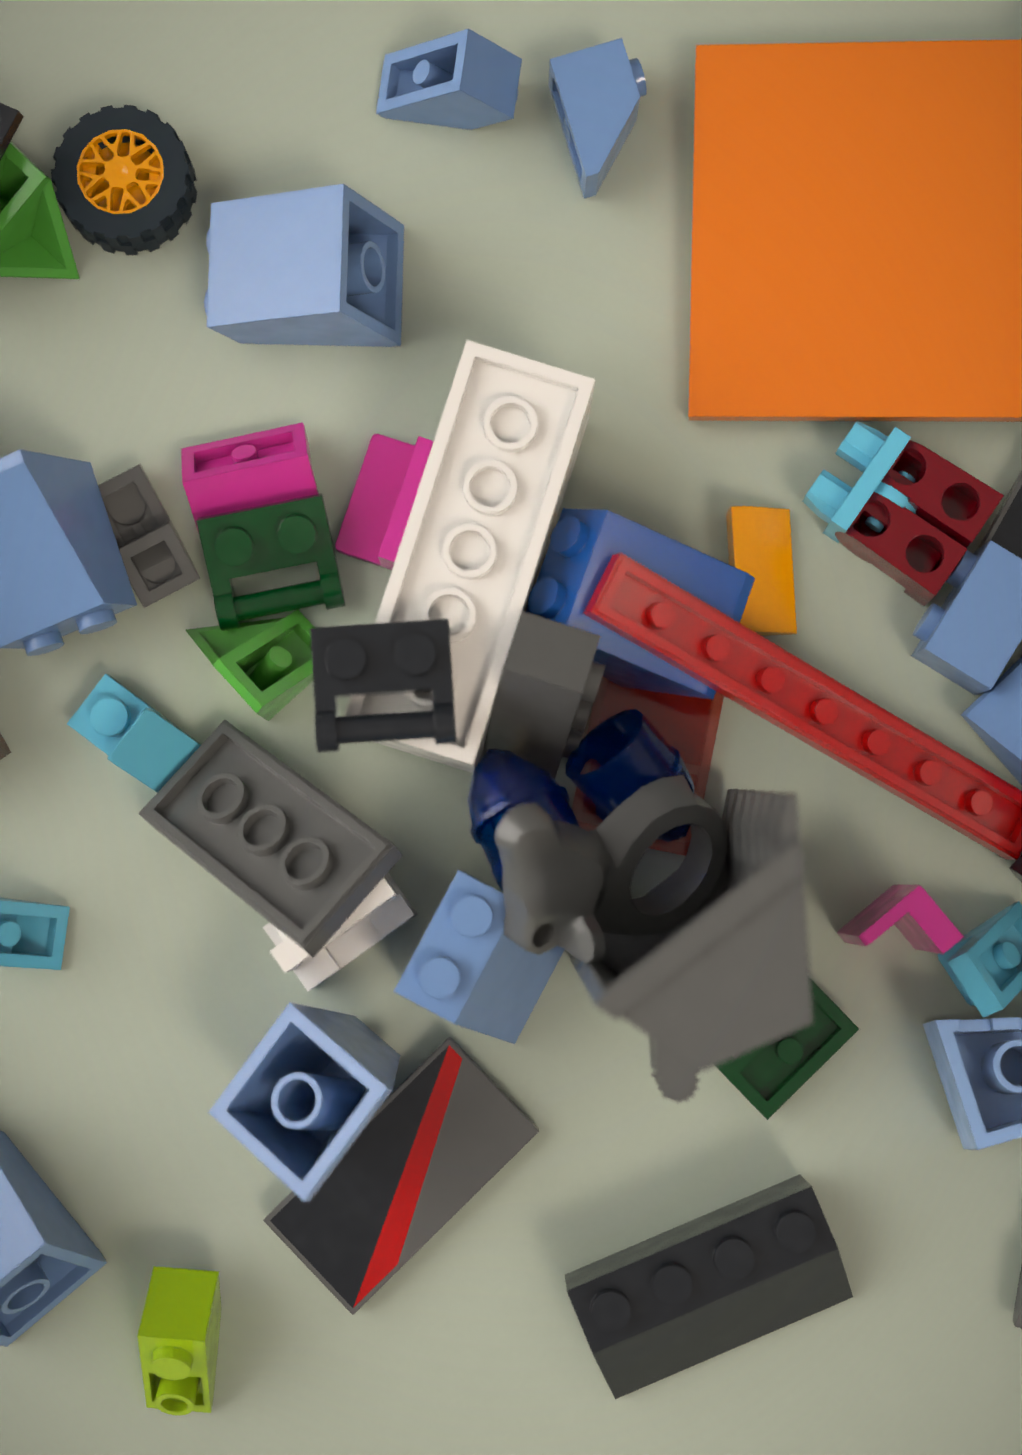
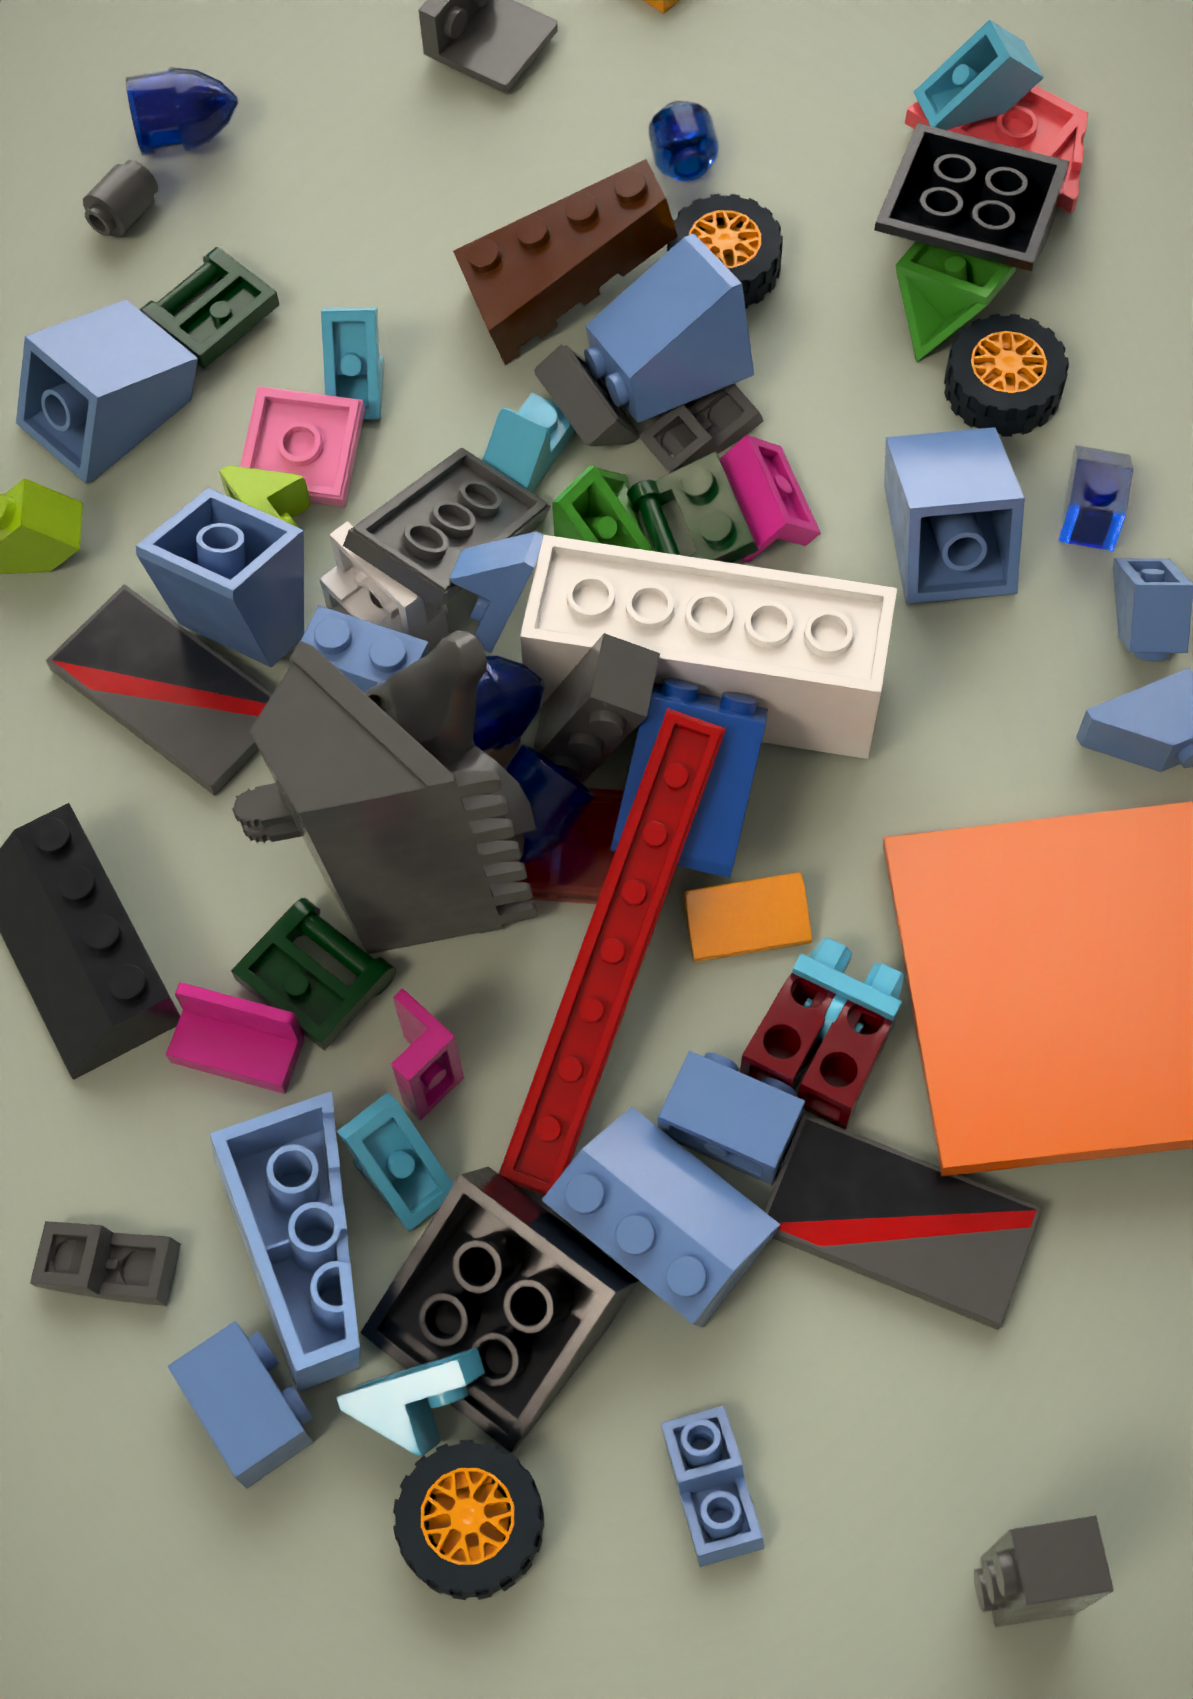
camera: 85 degrees right, 20 degrees down
(89, 664) = (584, 399): none -> dark grey slope
(100, 1002) = (307, 438): none -> bright pink tile
(178, 1052) = (269, 491): none -> lime slope
(298, 110) = (1096, 498): none -> clear blue slope
(370, 787) = (498, 575): none -> medium blue slope
(382, 662) = (599, 553): black plate -> none
(839, 1121) = (235, 1038): none -> dark pink panel

